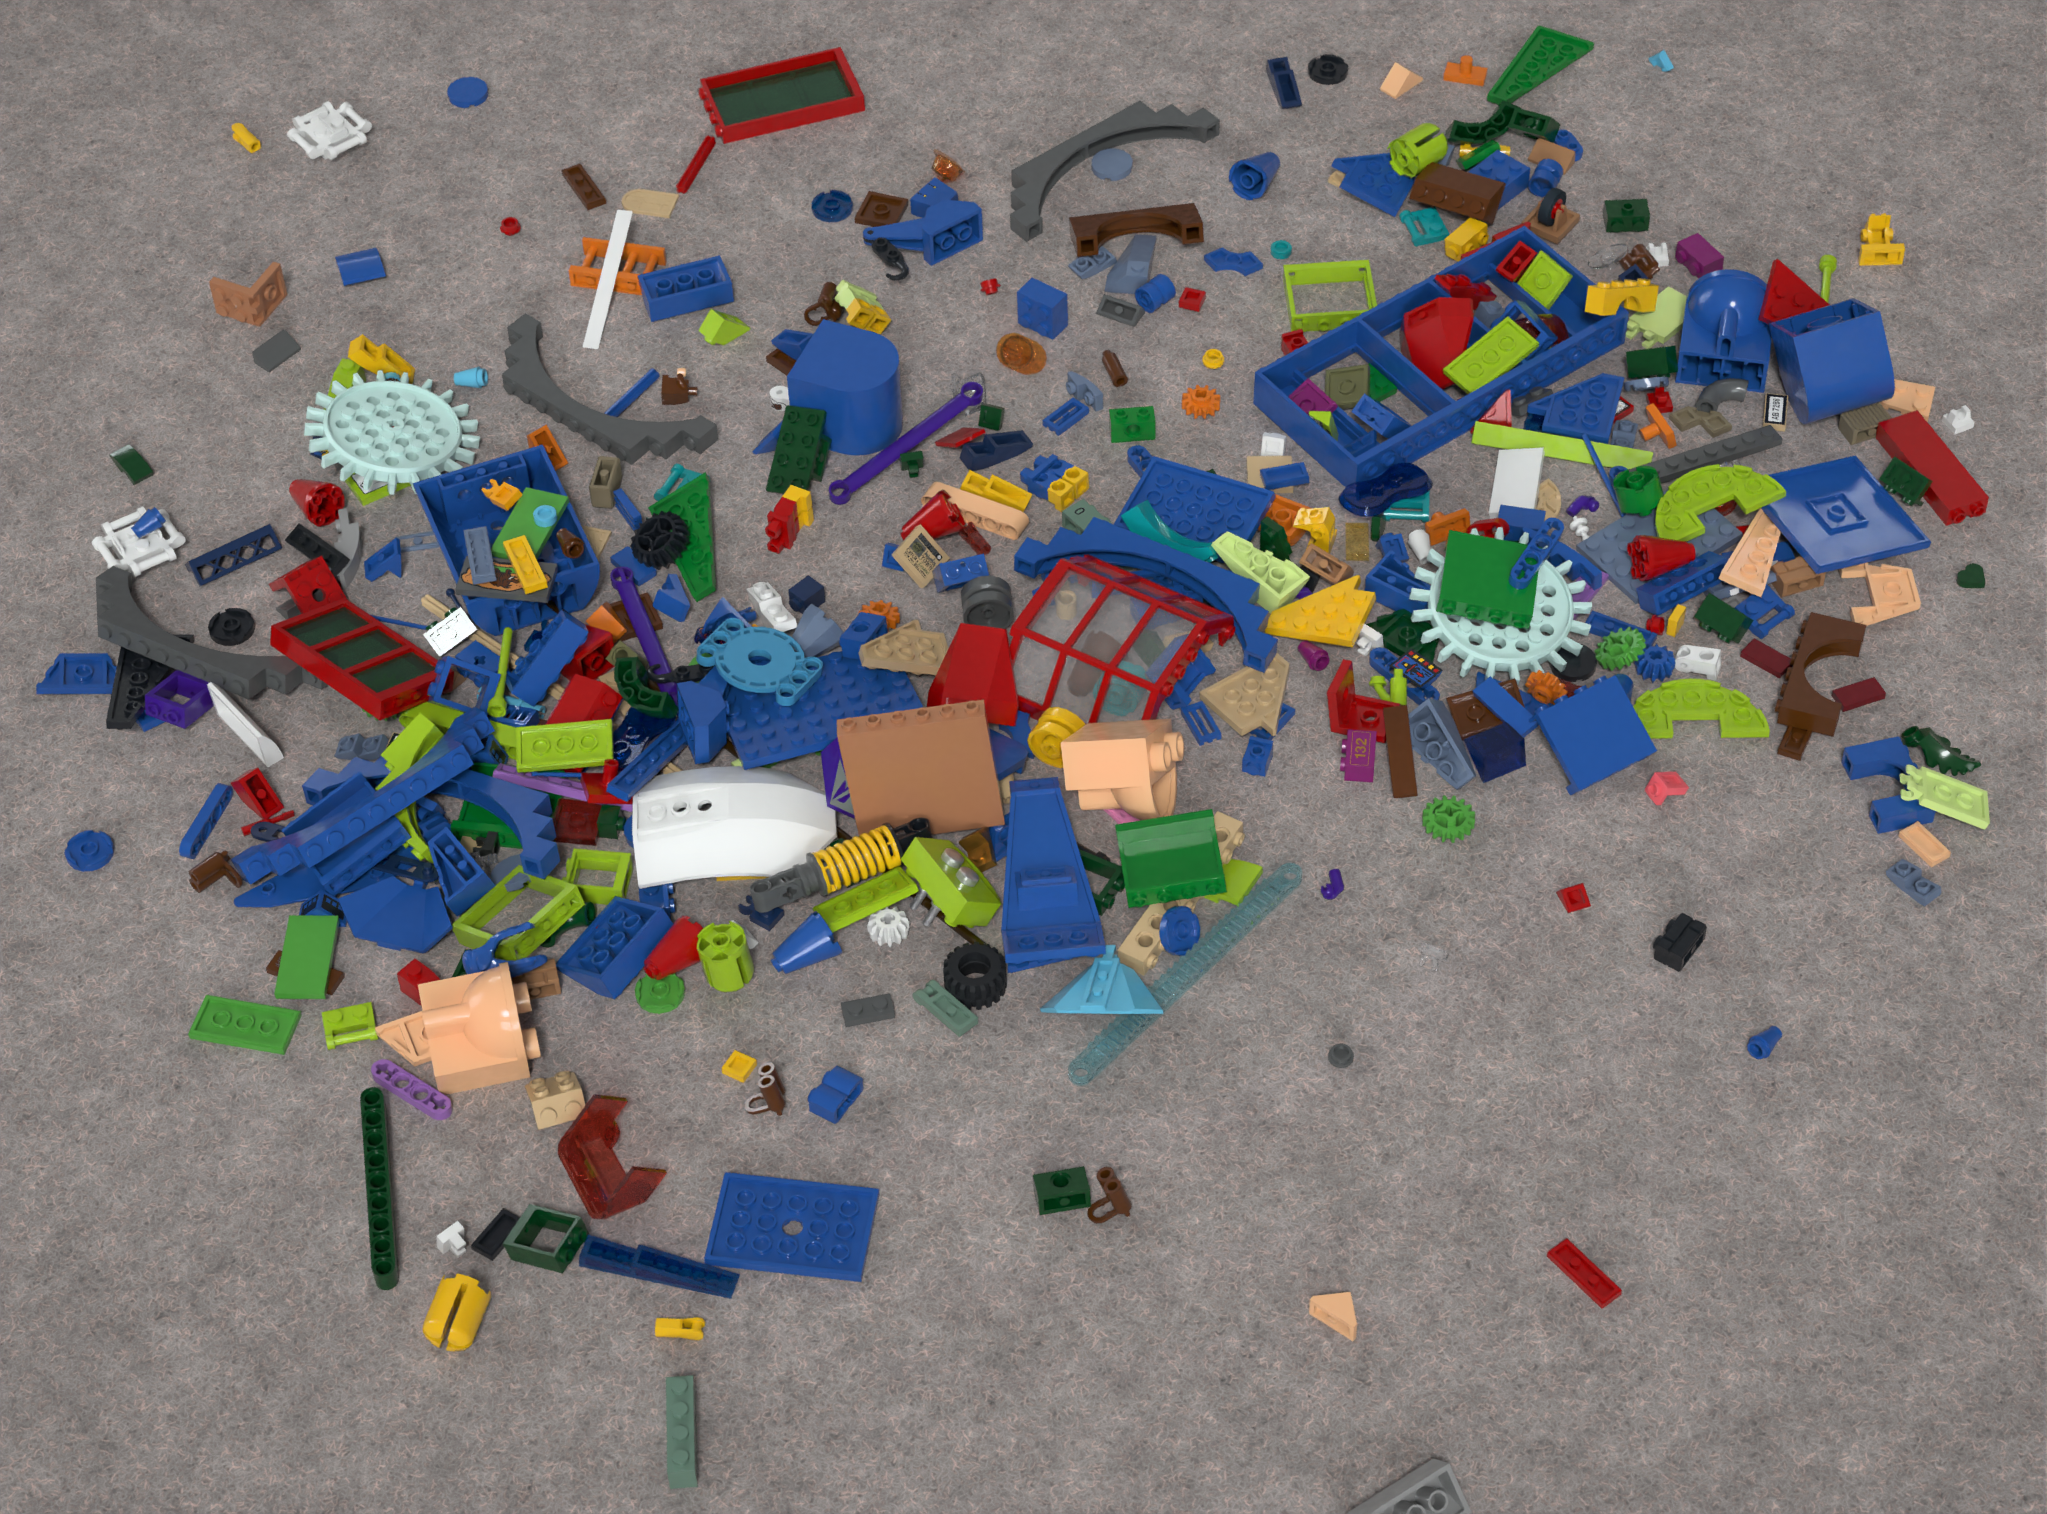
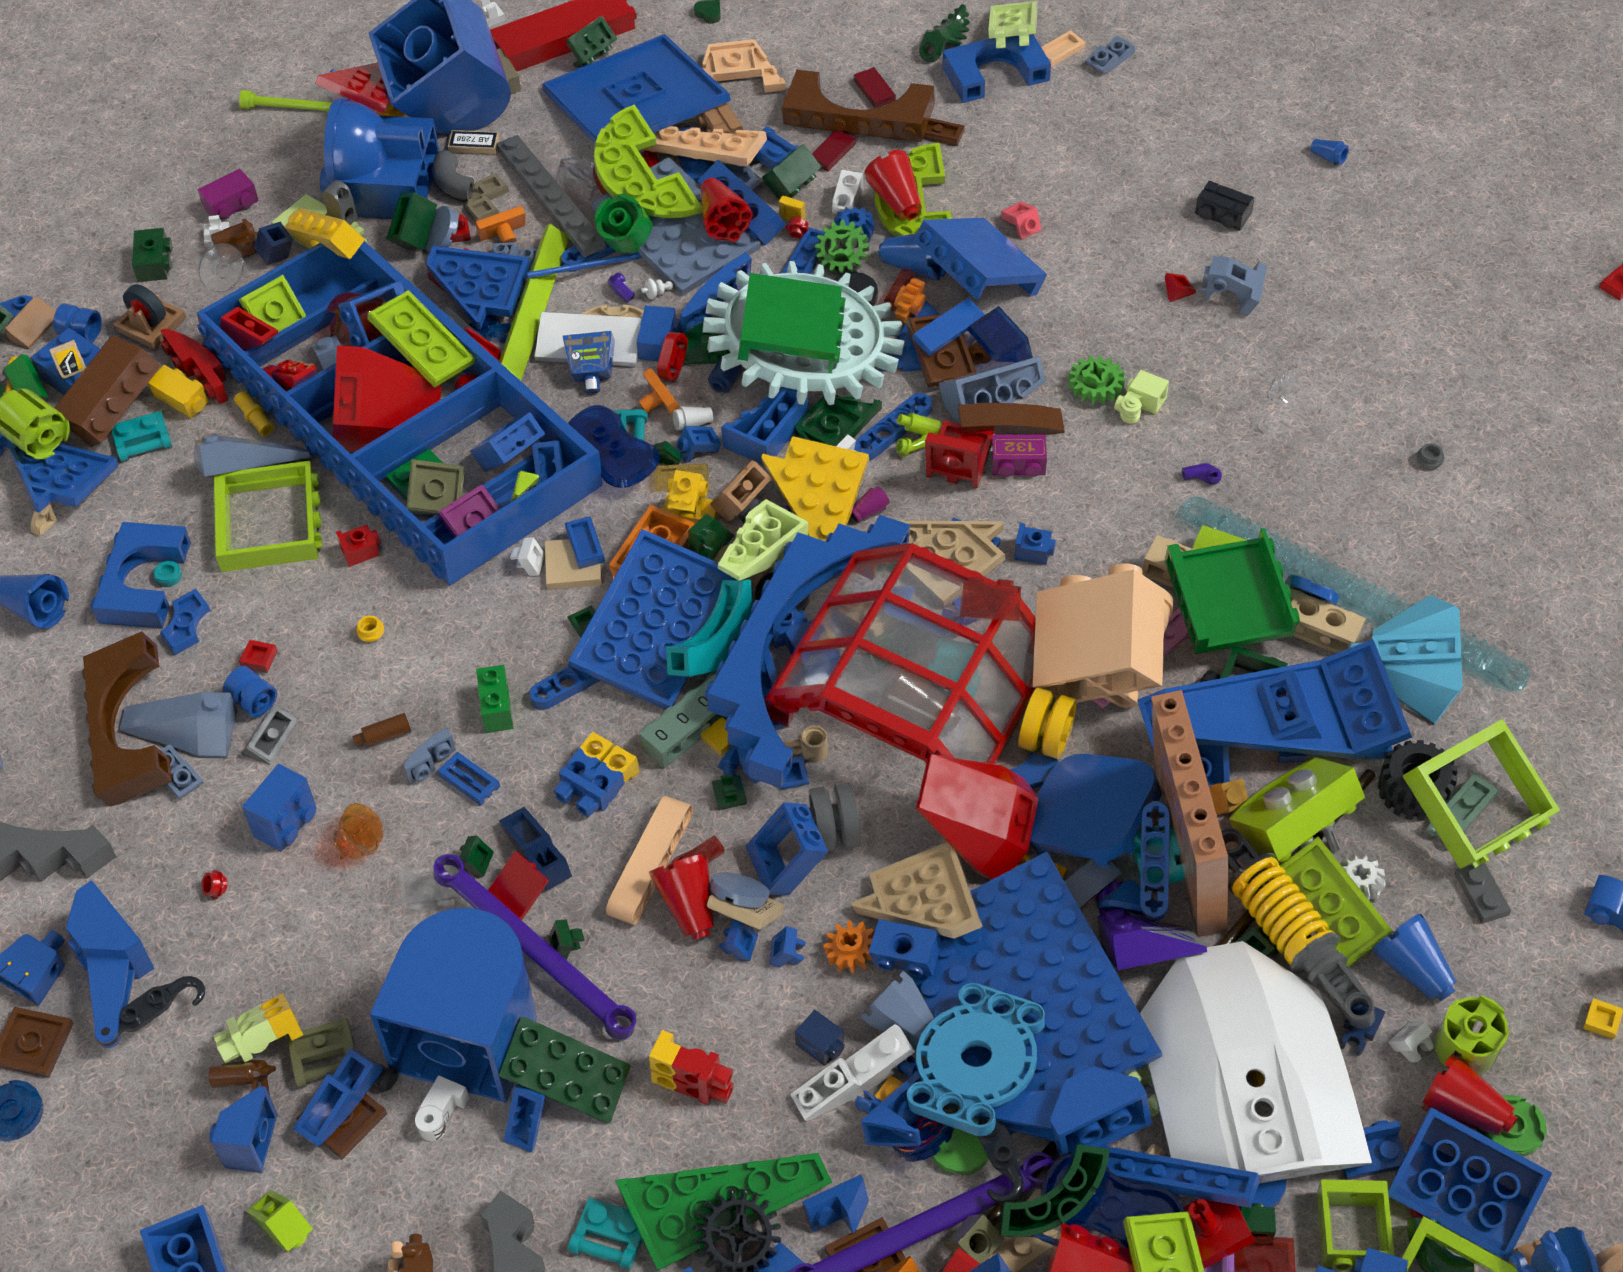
camera: 95 degrees left, 5 degrees up
(784, 304) = (245, 1131): none -> blue slope
(885, 580) = (784, 947): none -> blue tile
(918, 969) = (1521, 774): none -> lime window
(930, 547) = (742, 889): none -> sand blue tile
(996, 490) = (616, 842): yellow slope -> none
(1144, 665) = (990, 601): none -> clear red bracket
(1201, 401) = (451, 633): orange gear -> none
(1254, 219) = (132, 547): none -> blue arch
(1384, 266) = (227, 454): none -> sand blue wedge
(1417, 668) = (886, 408): piece -> none
(1427, 849) = (1144, 393): none -> yellowish green brick
(1482, 162) = (67, 359): none -> slope
(1487, 478) = (590, 357): none -> blue torso
(1535, 552) = (791, 283): blue beam -> none
(1561, 941) = (1235, 277): none -> sand blue tile
(1668, 311) = (339, 202): none -> dark grey leg
(1690, 681) = (895, 183): none -> red cone
(1877, 244) = (219, 63): yellow tile -> none

